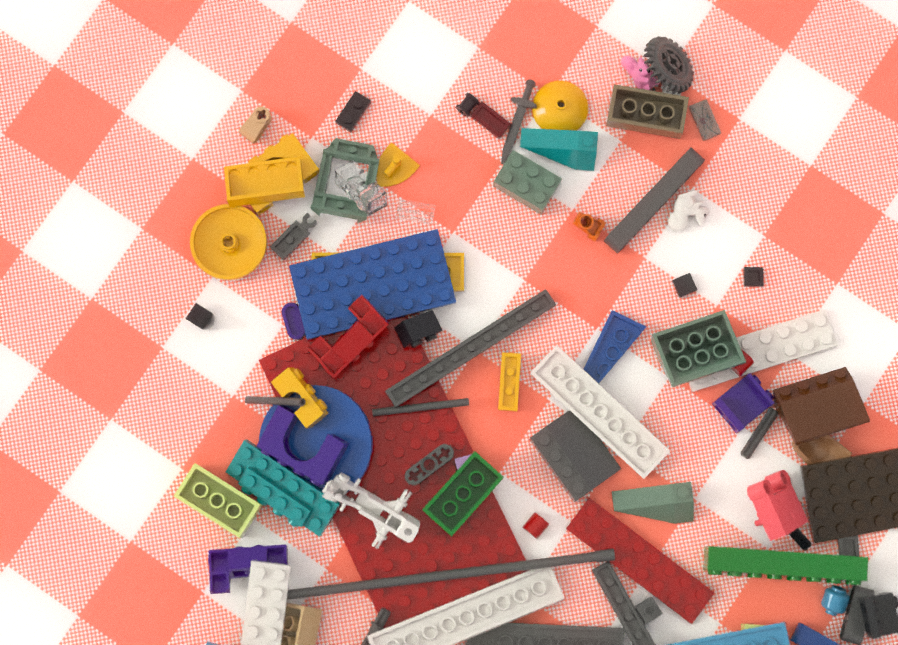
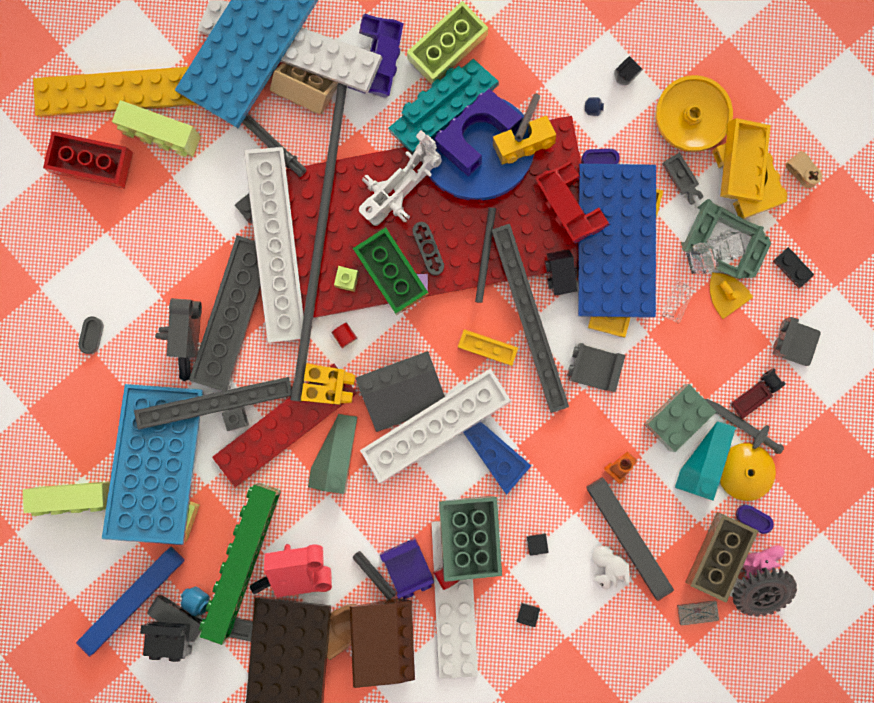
camera: 105 degrees right, 5 degrees up
(242, 341) = (594, 106): none -> dark blue piece
(424, 91) = (796, 342): none -> dark grey bracket
(481, 536) = (346, 279): none -> yellowish green brick
(500, 273) = (596, 367): none -> dark grey panel
(590, 521) = (333, 382): none -> yellow hips
(602, 89) = (754, 518): none -> dark purple tile

